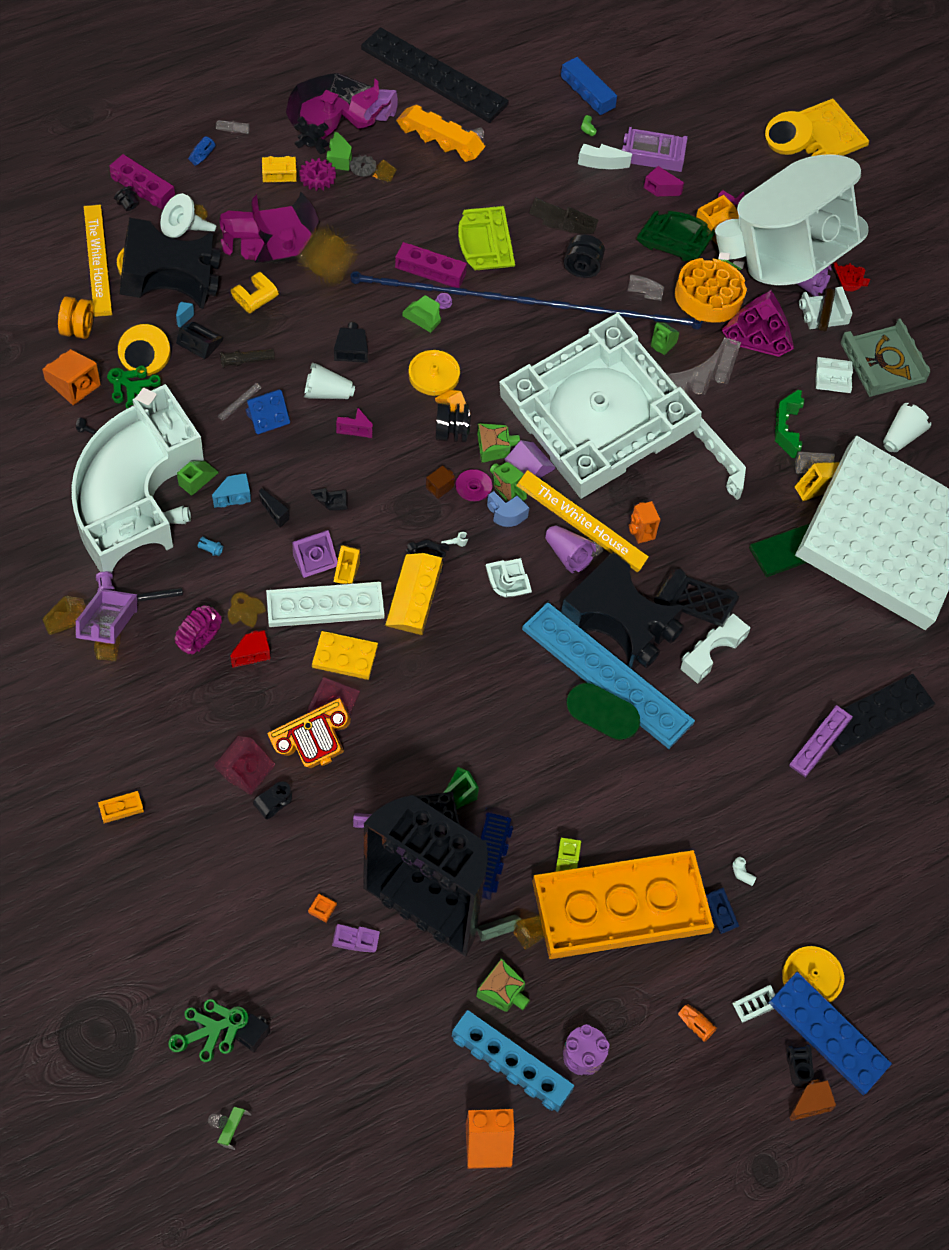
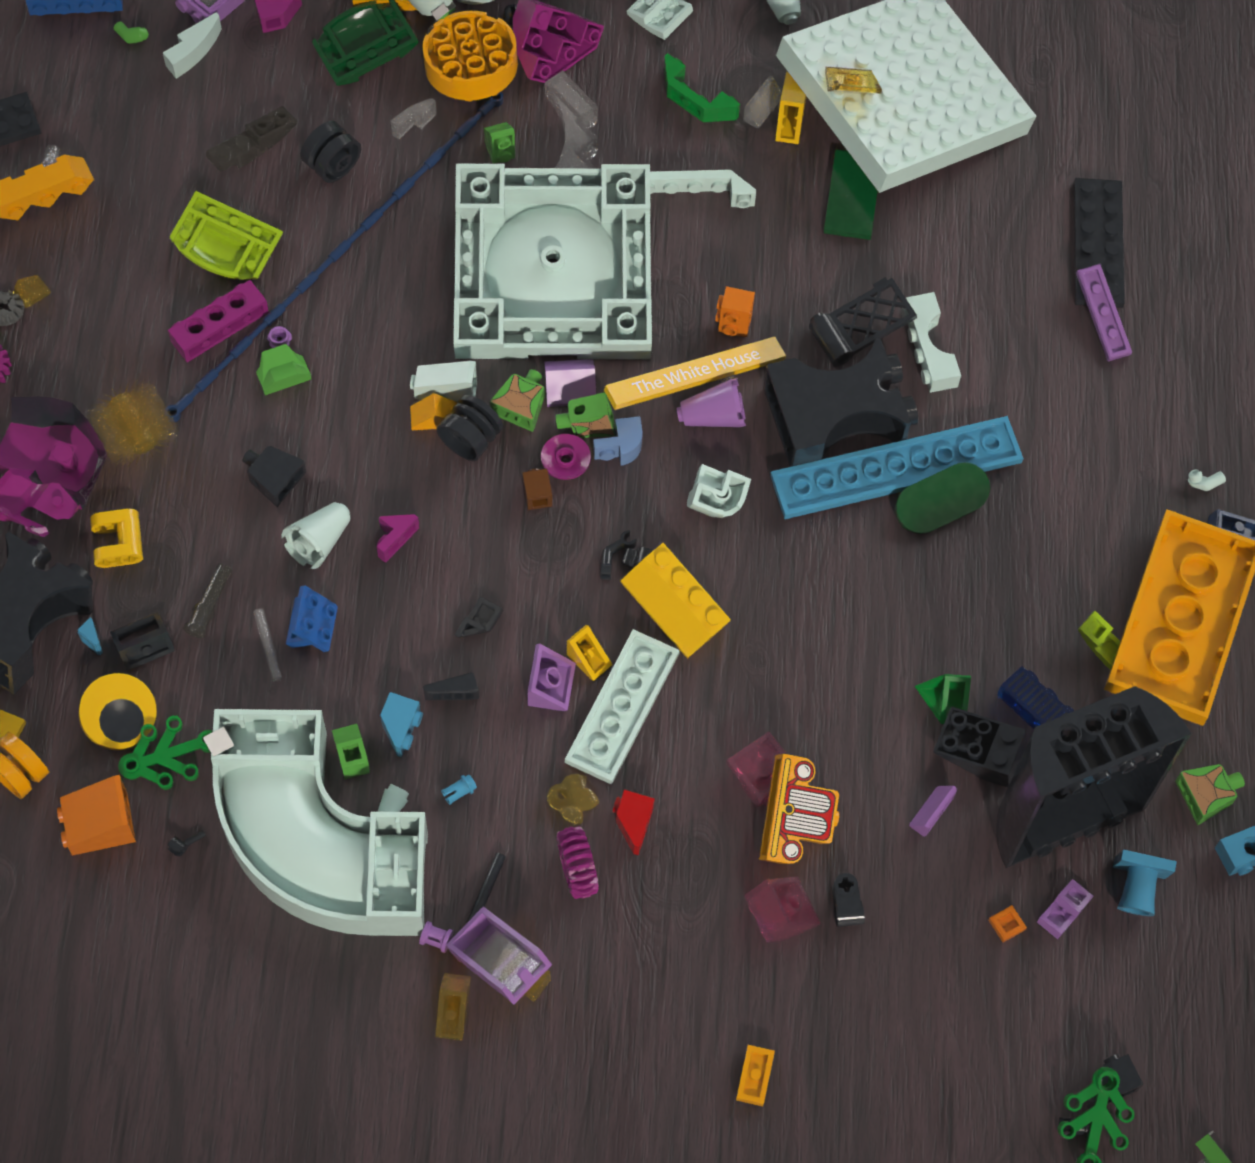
camera: 55 degrees left, 5 degrees up
(345, 655) = (701, 723): yellow plate -> none
(402, 973) = (1141, 880): none -> dark azure plant
(434, 372) = (374, 408): yellow piece -> none
(460, 541) = (624, 517): light aqua hand -> none
(477, 396) = (445, 379): none -> light aqua slope
(854, 488) = (851, 81): none -> clear yellow slope

